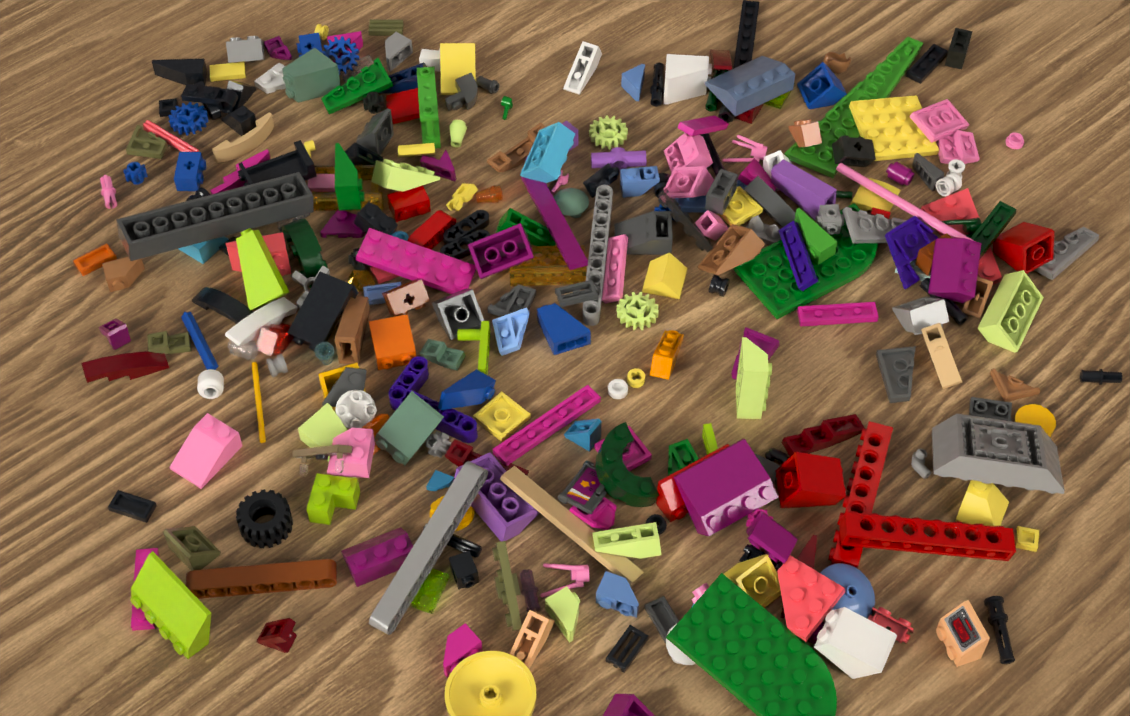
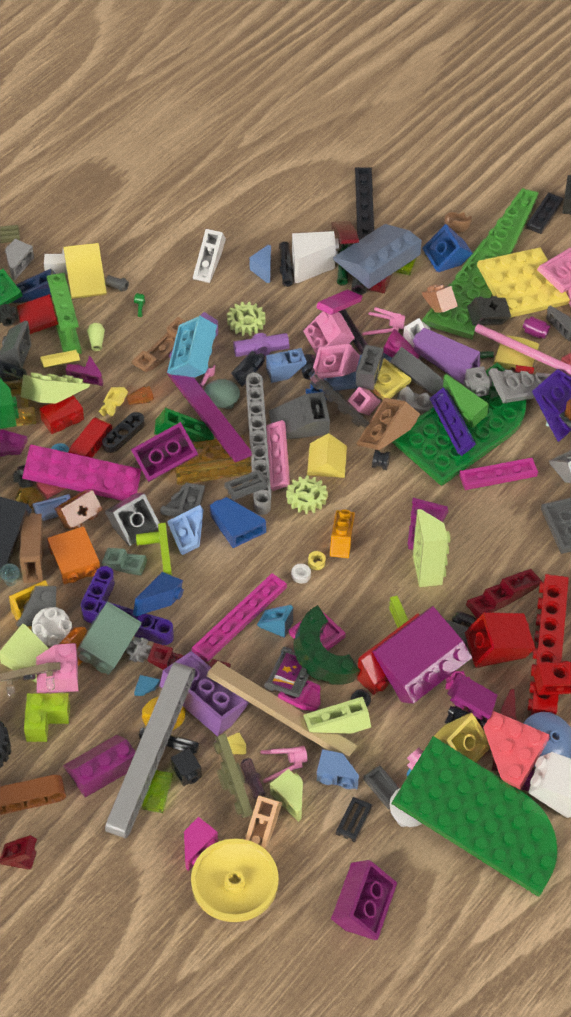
camera: 10 degrees left, 0 degrees up
(372, 217) = (31, 433): black brick -> none
(462, 253) = (129, 443): black beam -> none
(466, 94) = (99, 295): dark grey brick -> none
(502, 416) = (194, 614): light yellow tile -> none
(517, 553) = (237, 744): none -> light yellow slope
(680, 456) = (373, 631): green wing -> none

